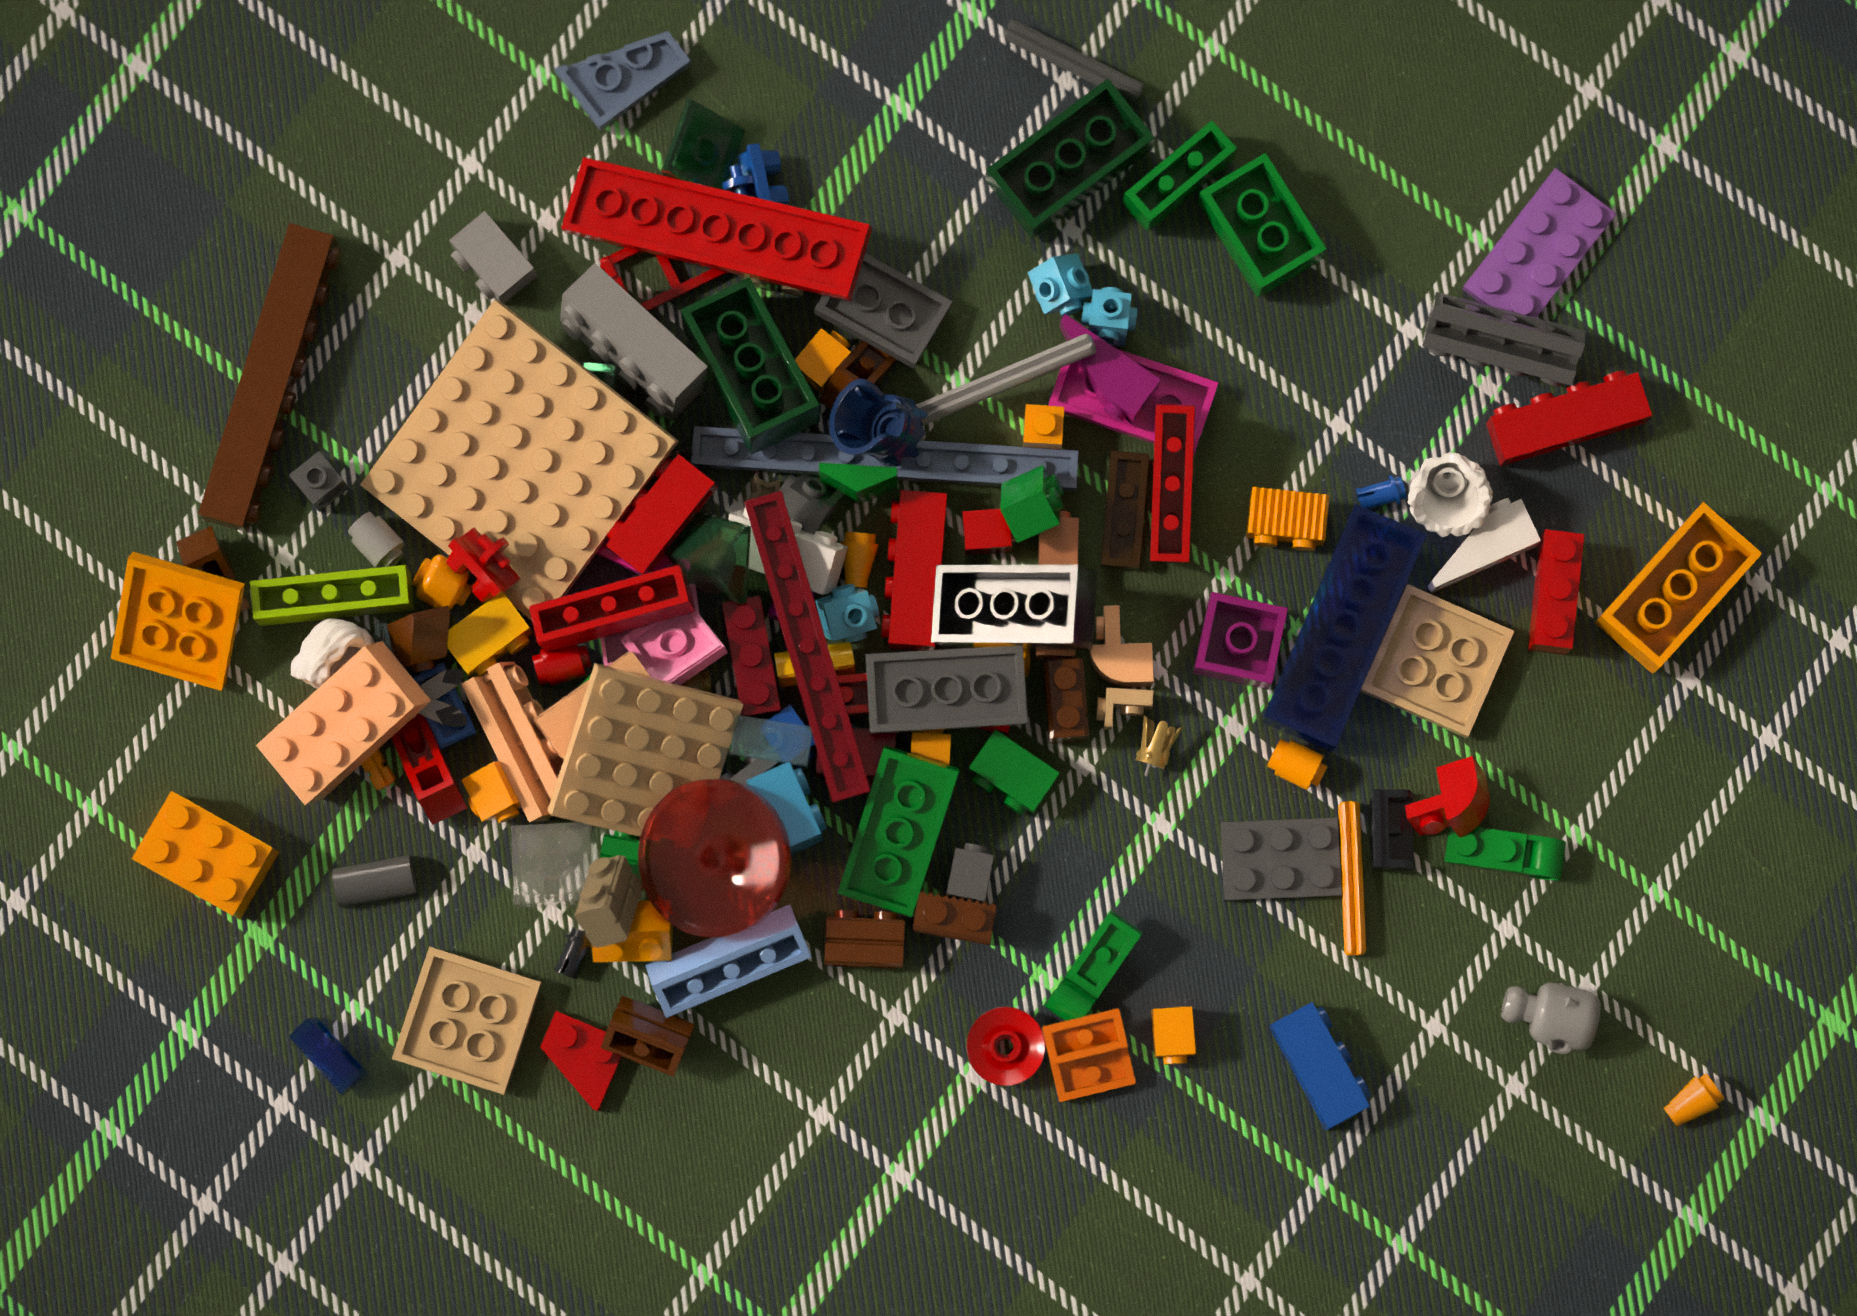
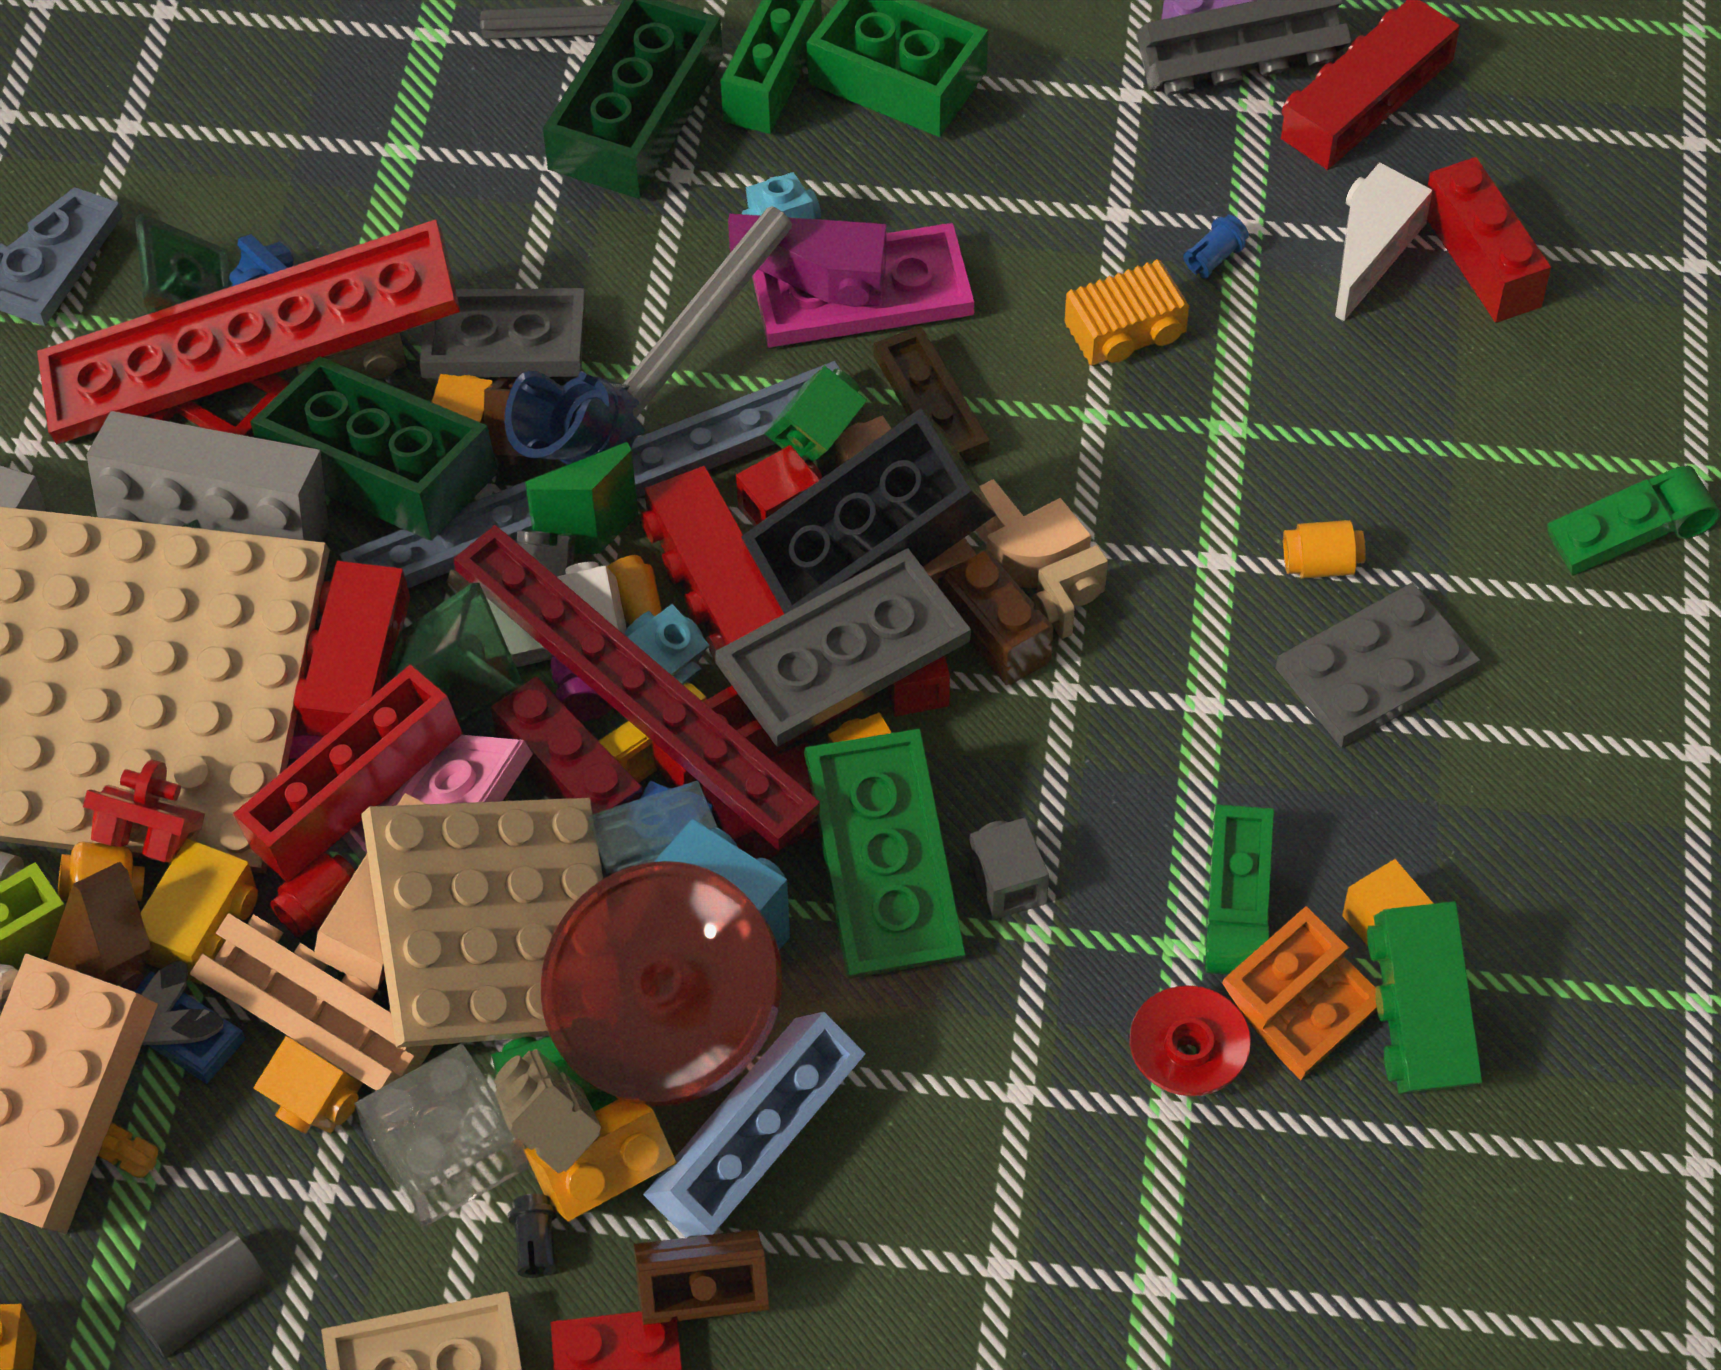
camera: 30 degrees left, 25 degrees down
(428, 770) = (199, 1107): red slope -> none
(864, 941) = (922, 1013): reddish brown brick -> none
(954, 918) = (1022, 923): reddish brown brick -> none
(1012, 773) = (985, 727): green brick -> none
(1043, 426) = (775, 351): light orange brick -> none
(1061, 284) = (700, 211): medium azure brick -> none
(1148, 1104) = (1424, 998): none -> green brick
(1156, 748) = (1147, 624): pearl gold piece -> none
(1172, 482) = (971, 325): red brick -> none
(1240, 640) = (1163, 450): magenta brick -> none
(1320, 1065) = (1597, 856): blue brick -> none
(1343, 628) = (1275, 383): clear blue brick -> none
(1352, 878) = (1494, 657): light orange axle -> none
(1390, 830) = (1481, 566): black hinge -> none
(1437, 661) = (1404, 372): tan plate -> none
(1450, 501) = (1311, 185): white hair -> none
(1461, 802) = (1539, 489): red brick -> none
(1678, 588) = (1617, 169): light orange brick -> none

